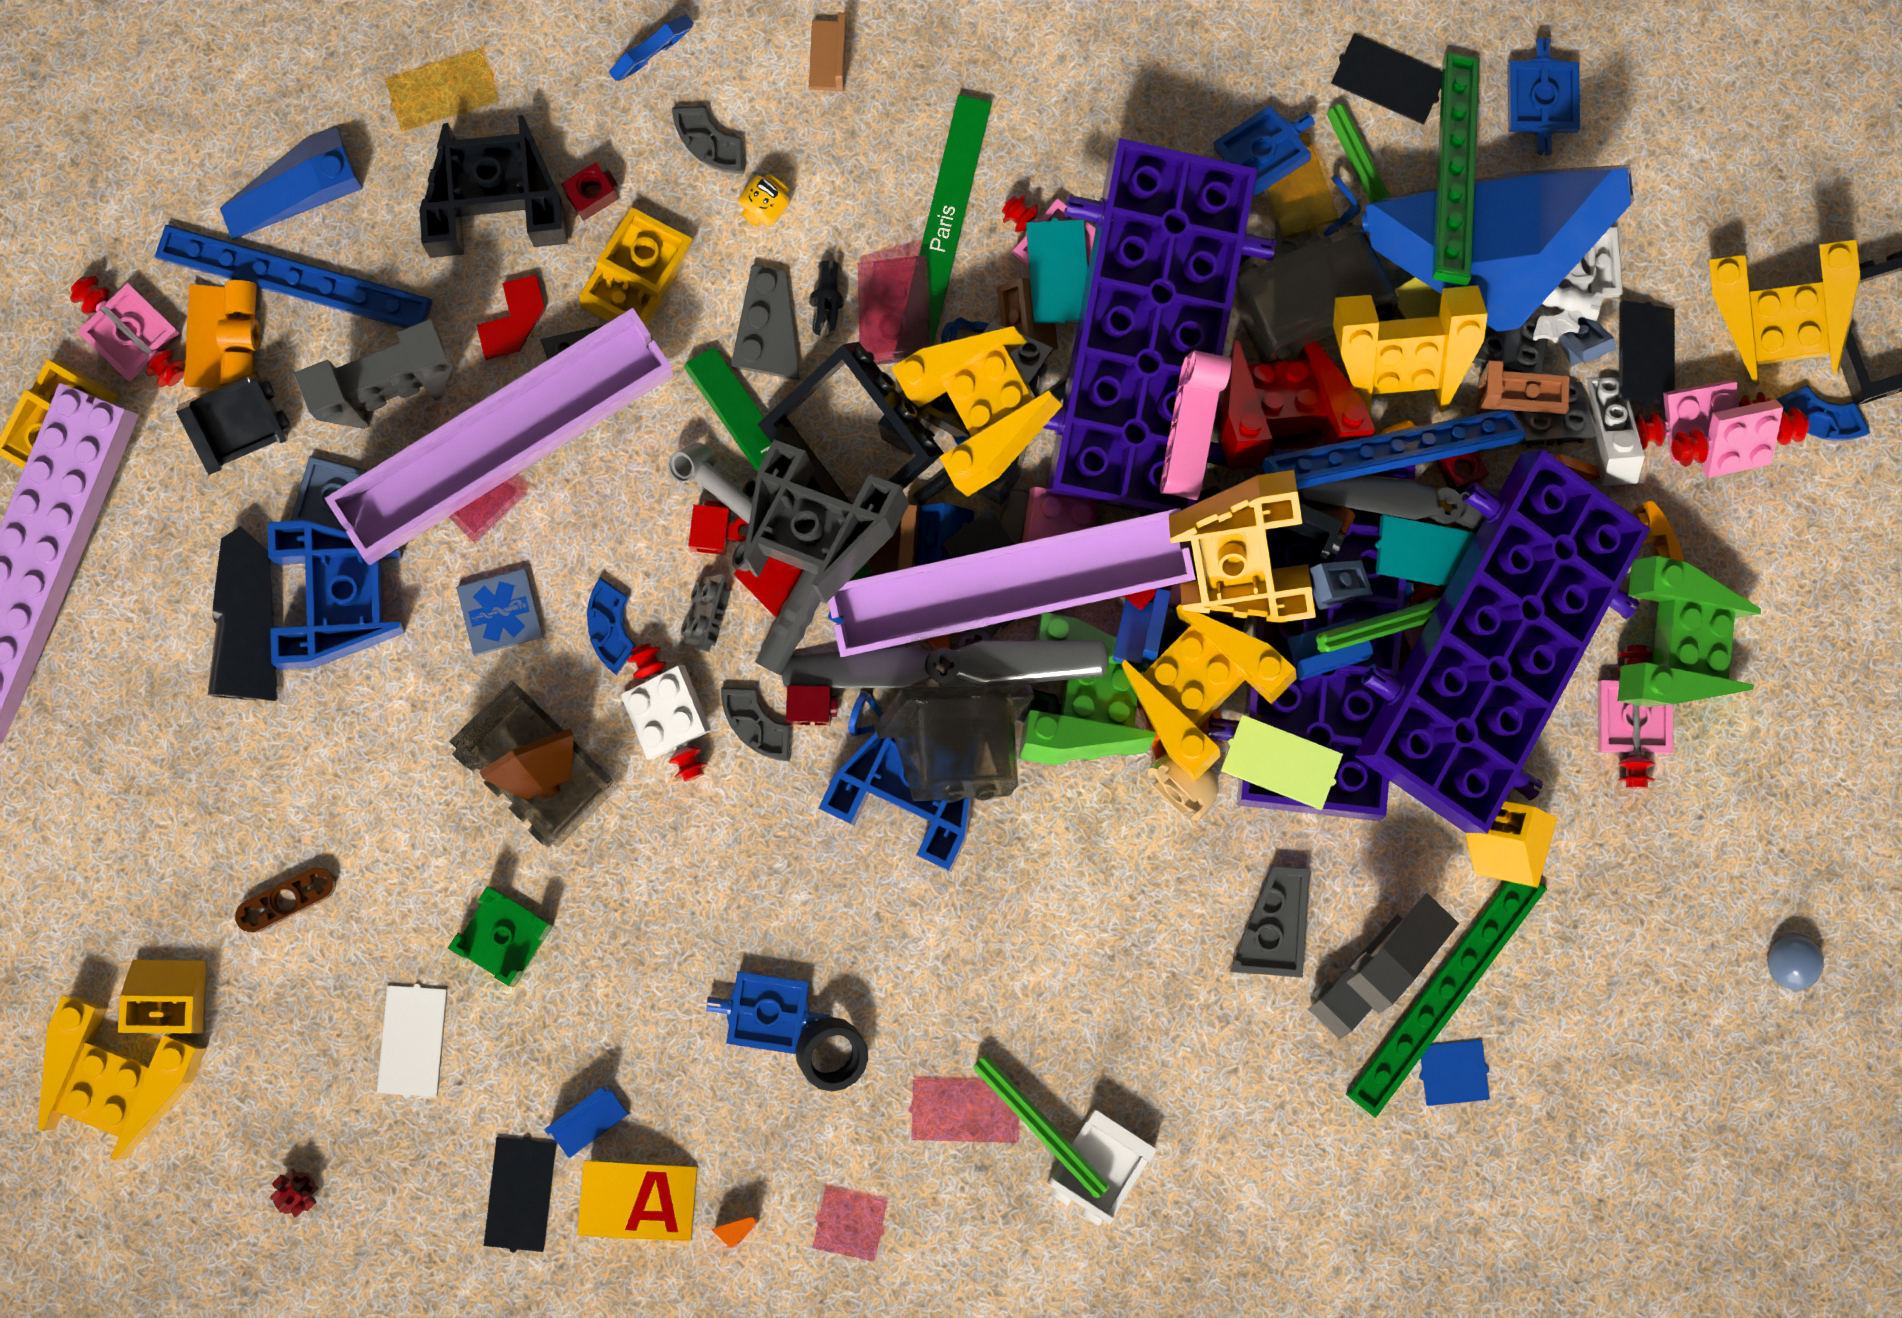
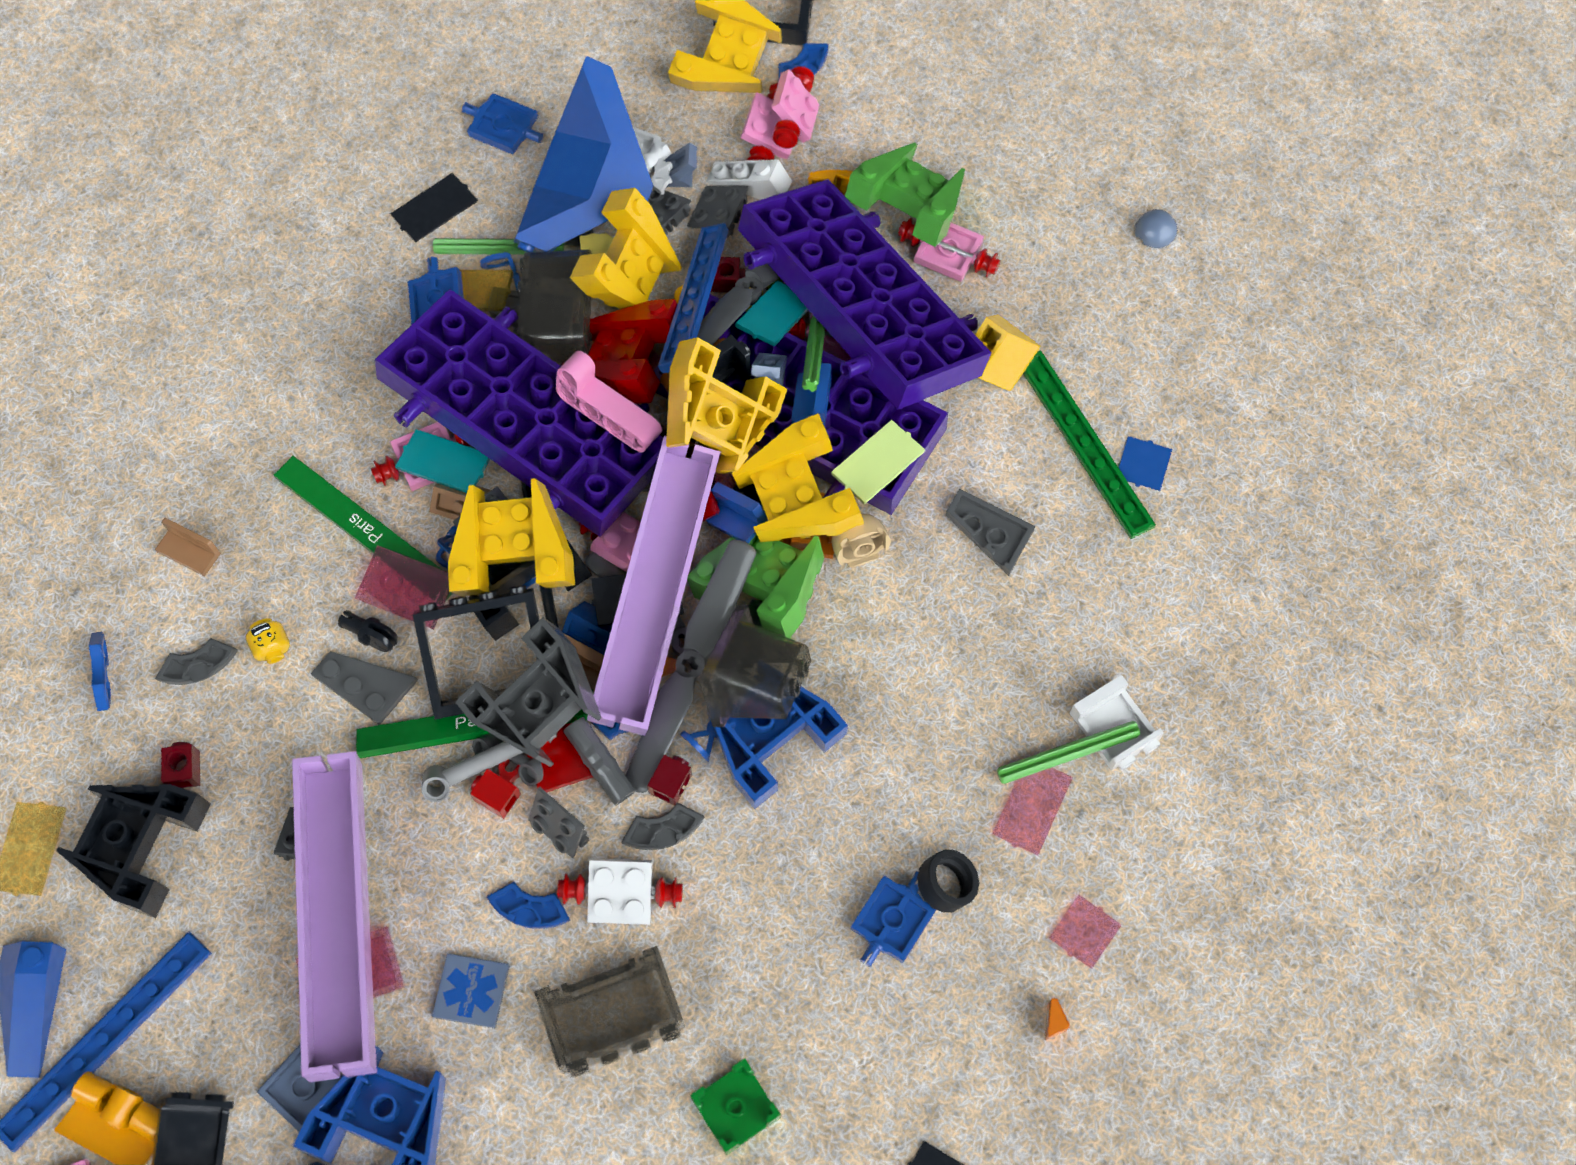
camera: 65 degrees left, 15 degrees down
(367, 383) = (231, 975): dark grey wedge -> none
(511, 333) = (254, 880): red tile -> none
(534, 767) = (613, 1009): reddish brown slope -> none
(587, 1121) = (917, 1104): blue panel -> none
(635, 268) = (260, 760): yellow slope -> none
(636, 1200) = (999, 1091): yellow slope -> none
(1383, 967) = (1054, 462): dark grey wedge -> none
(1456, 169) = (523, 181): green tile -> none
(1521, 391) = (692, 217): nougat bracket -> none
(1646, 352) = (708, 138): black piece -> none

